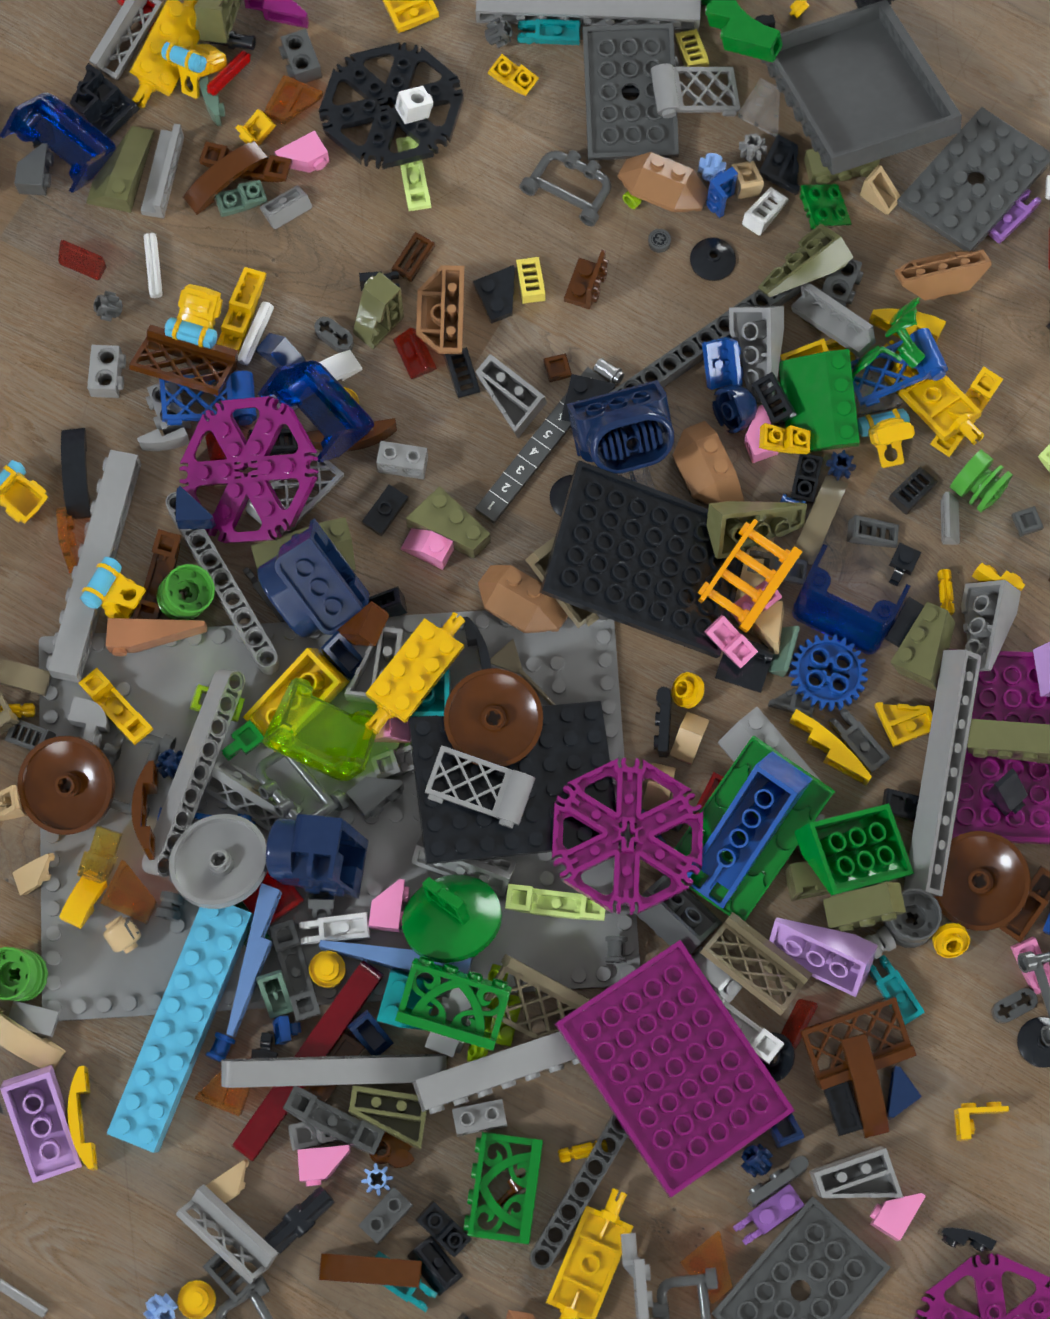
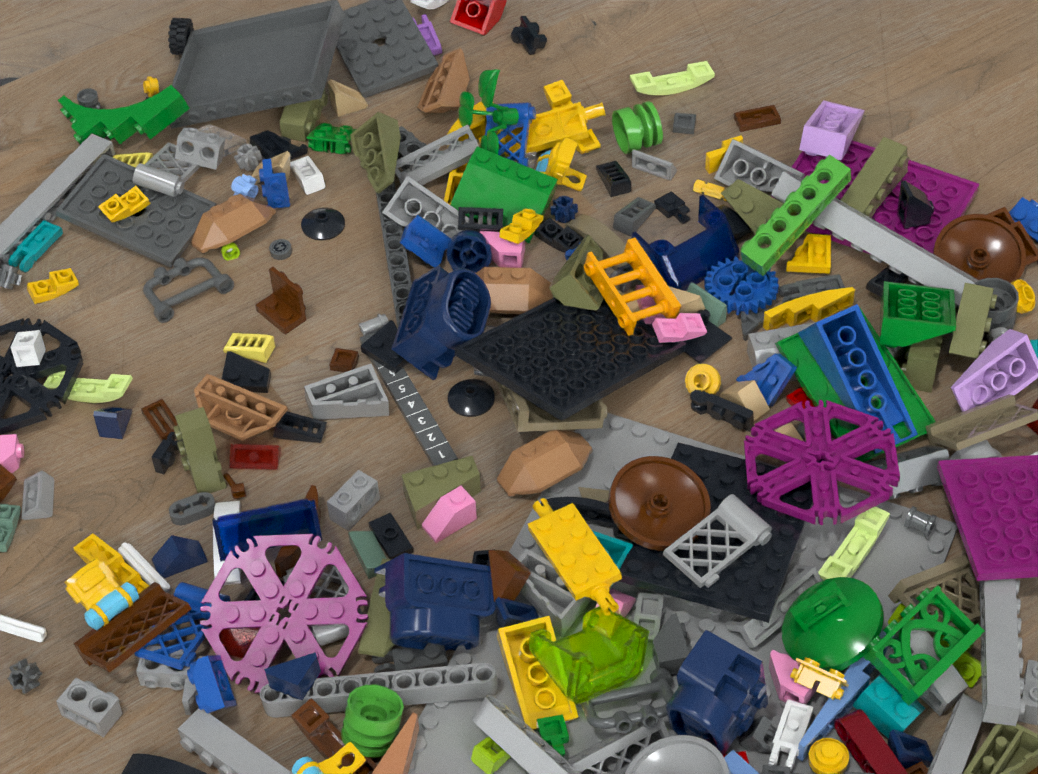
camera: 60 degrees left, 25 degrees down
(157, 453) = (211, 684): none -> blue slope
(359, 501) = (367, 550): none -> sand green slope
(370, 359) = (237, 490): none -> reddish brown hand
(387, 918) = (829, 681): none -> yellow hinge
(391, 216) = (112, 421): none -> dark blue slope
(622, 80) = (121, 207): none -> yellow slope
(717, 747) = (771, 377): none -> blue wing
(731, 101) = (199, 153): none -> light grey brick
(975, 705) = (764, 258): none -> bright green brick

